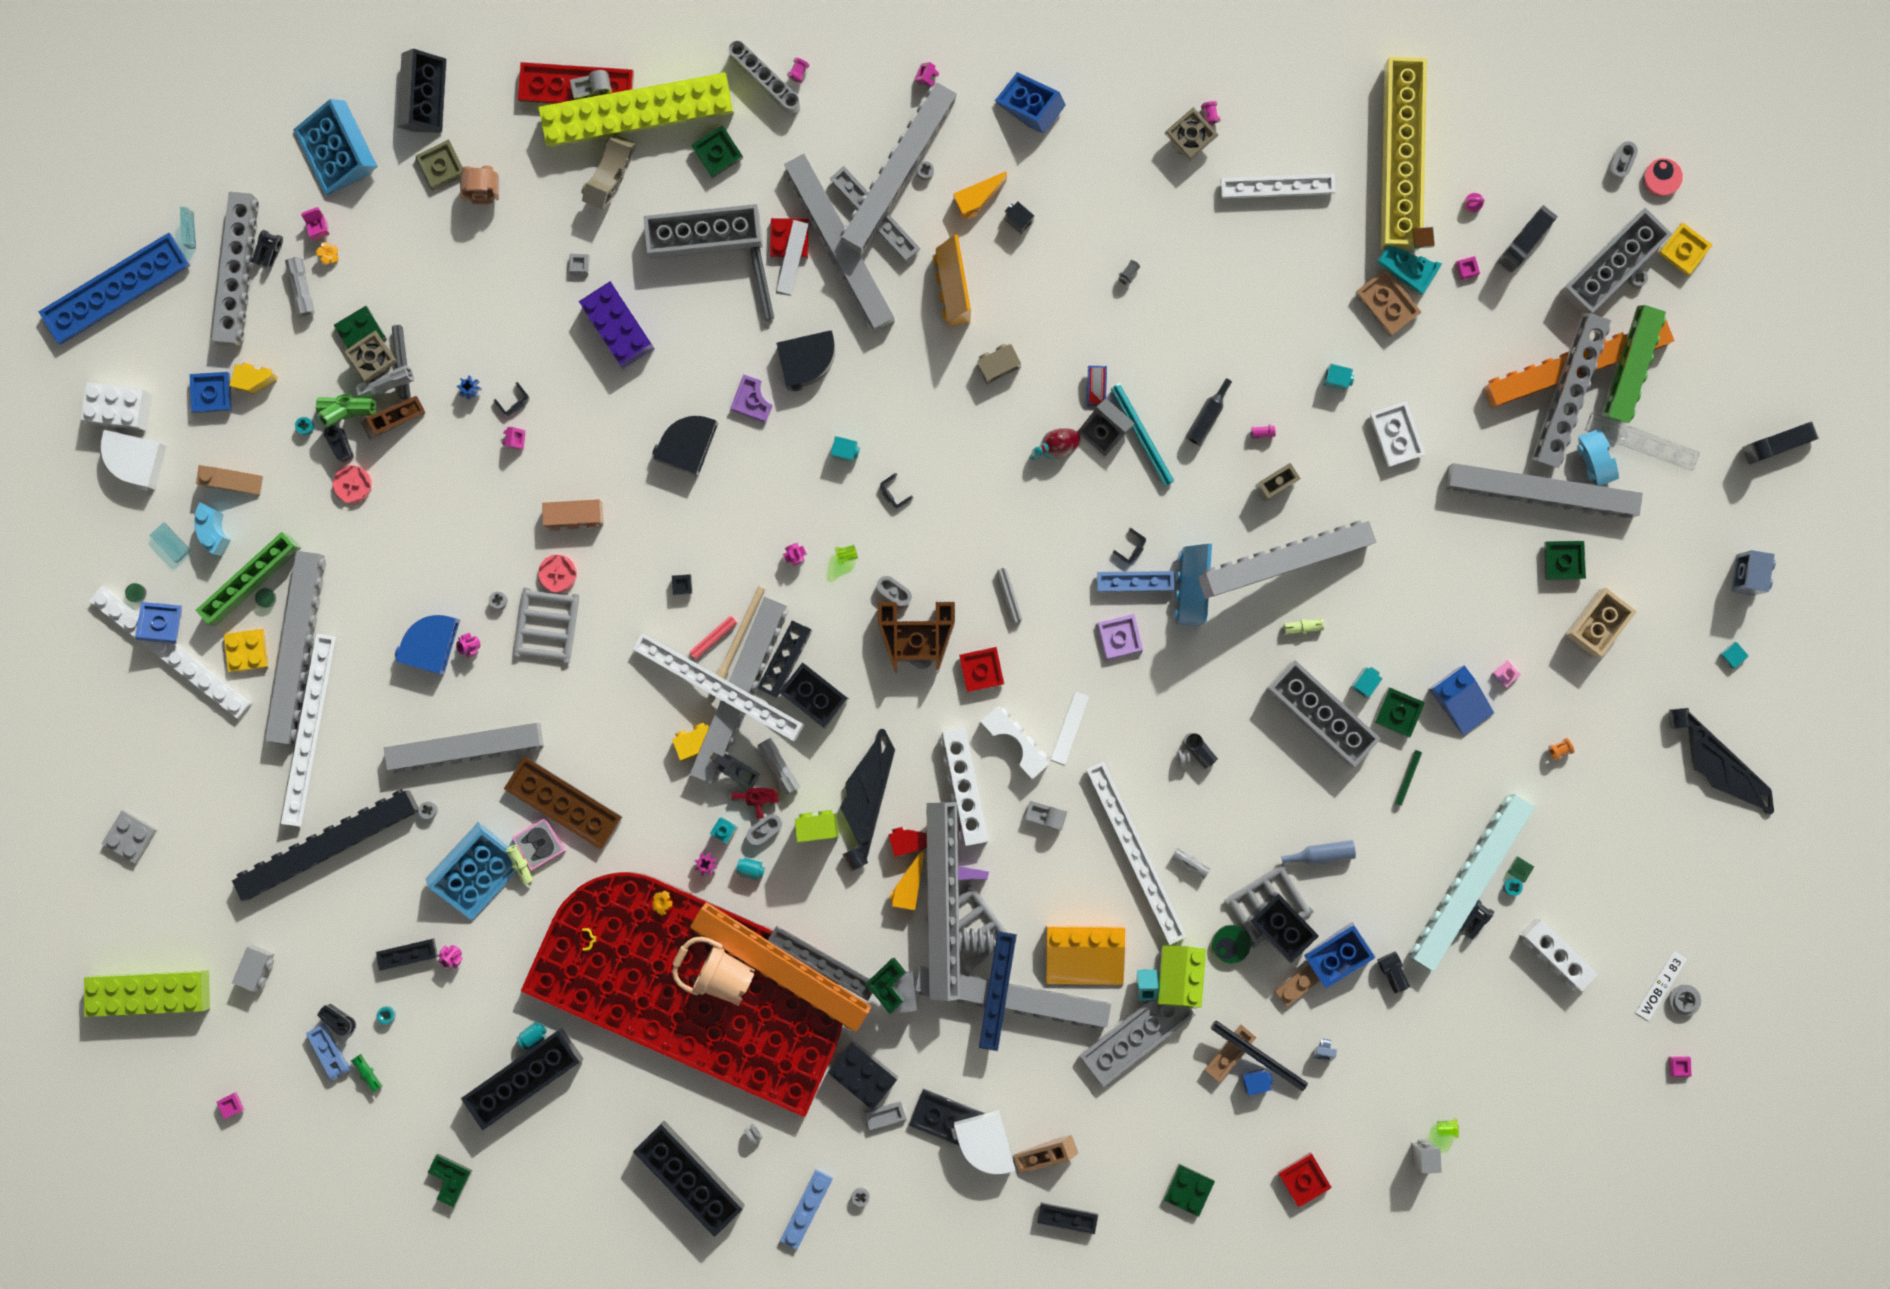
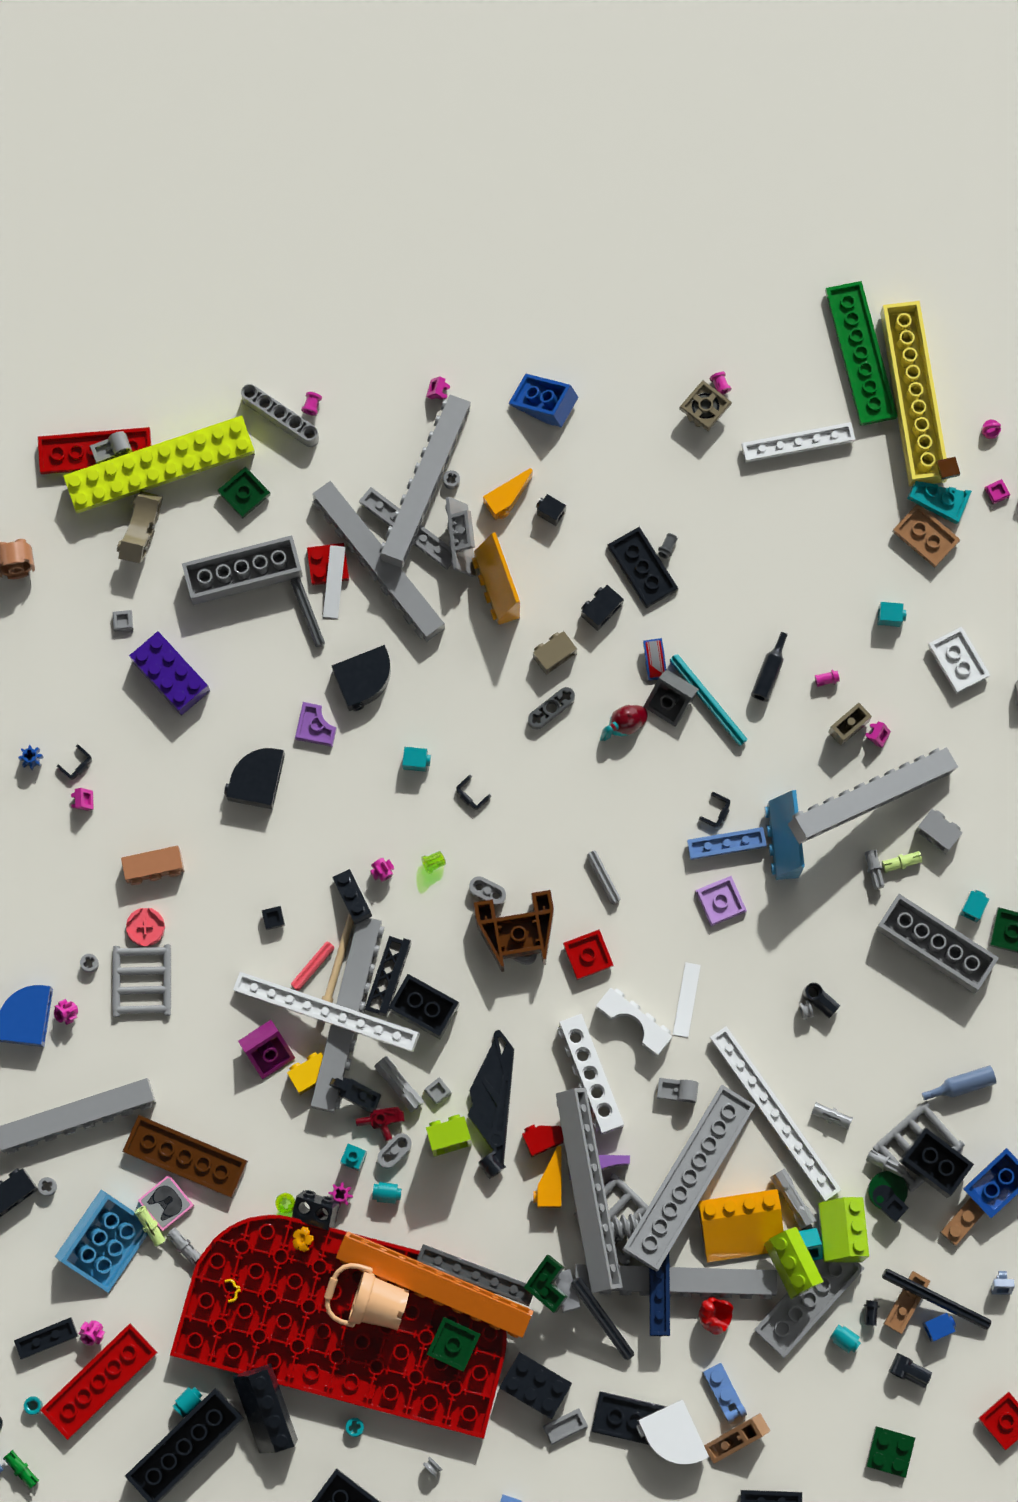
camera: 10 degrees left, 10 degrees down
(451, 1002) = (99, 1381): none -> red plate
(549, 887) = (183, 1245): none -> light grey pin
(604, 1057) = (265, 1409): none -> black slope
(650, 859) = (281, 1200): none -> clear neon green bush
(656, 712) = (266, 1049): none -> magenta slope
(679, 876) = (315, 1215): none -> black brick
(690, 1089) = (359, 1431): none -> teal bush
(761, 576) = (352, 896): none -> black plate
(790, 1025) = (453, 1344): none -> dark green plate
(815, 778) = (437, 1091): none -> light grey tile
(924, 230) = (461, 536): none -> light grey bracket
(936, 1023) = (602, 1318): none -> black axle
(1001, 416) = (537, 712): none -> dark grey beam
(1041, 904) = (688, 1178): none -> light grey plate
(1041, 1108) = (724, 1392): none -> medium blue plate
(1045, 1037) = (715, 1315): none -> red hair
(1053, 324) = (602, 607): none -> black brick
(1100, 290) = (642, 567): none -> black tile
(1128, 1001) = (793, 1262): none -> lime slope
(1143, 949) = (785, 1186): none -> light grey axle
(1165, 1078) = (845, 1339): none -> teal brick
(1194, 1057) = (871, 1312): none -> black pin
(1218, 1116) = (905, 1369): none -> black piece
(1234, 918) = (885, 1163): none -> light grey axle
(1234, 963) = (894, 1208): none -> black plate
(1275, 629) = (874, 868): none -> light grey axle
(1305, 496) = (879, 734): none -> dark pink tile
(1346, 602) = (939, 830): none -> light grey brick
(1357, 103) = (861, 353): none -> green plate

